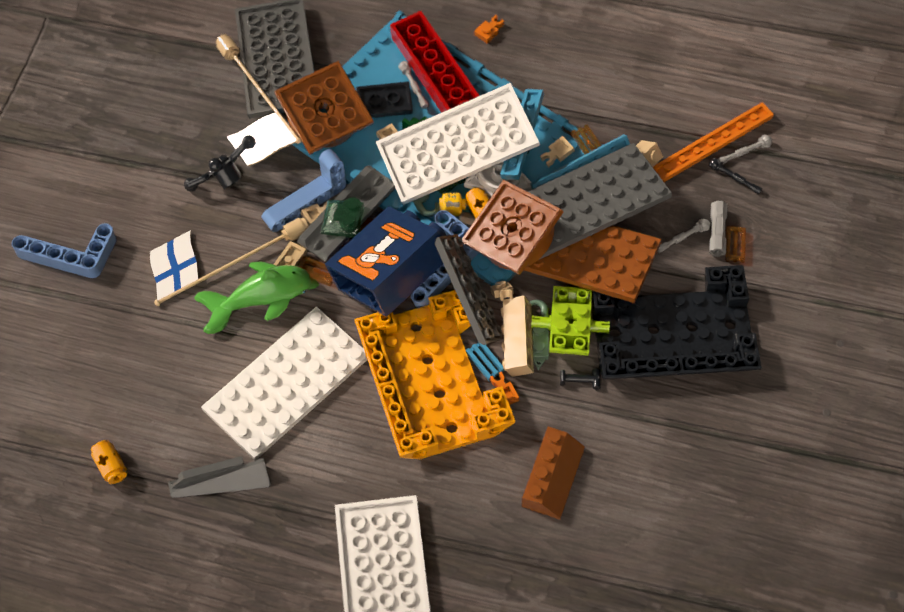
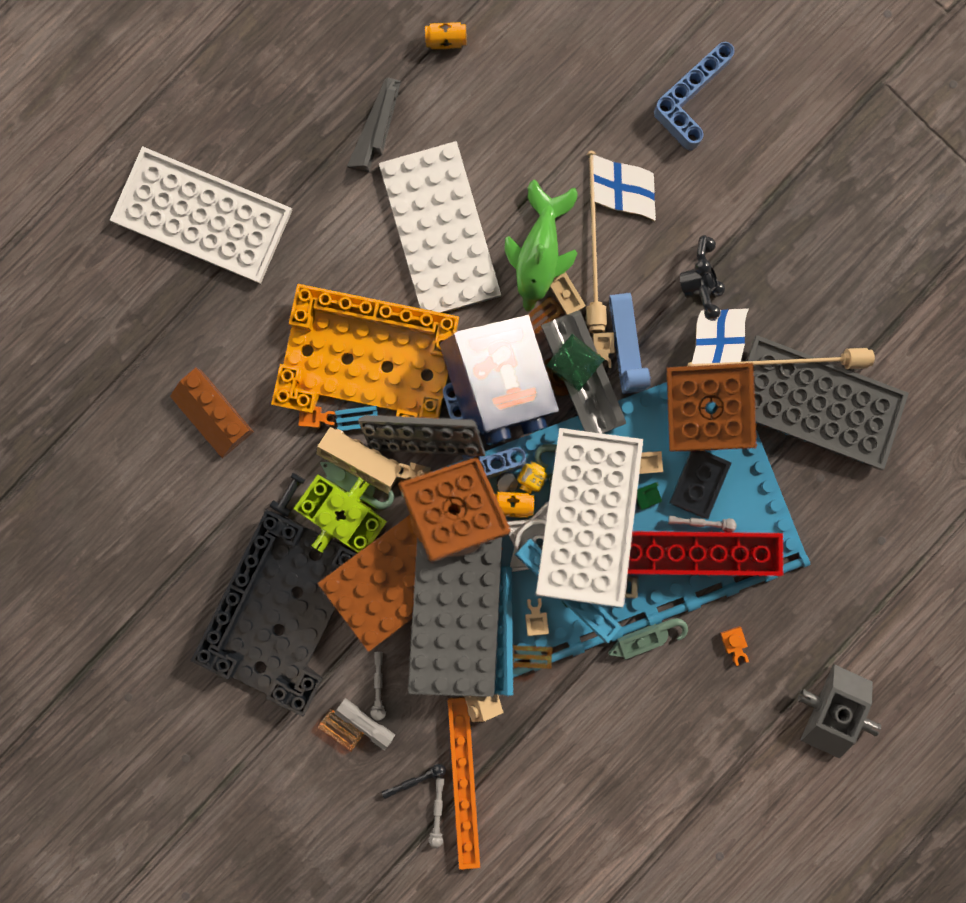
camera: 120 degrees right, 25 degrees up
(520, 79) = (646, 638): none -> sand green plate

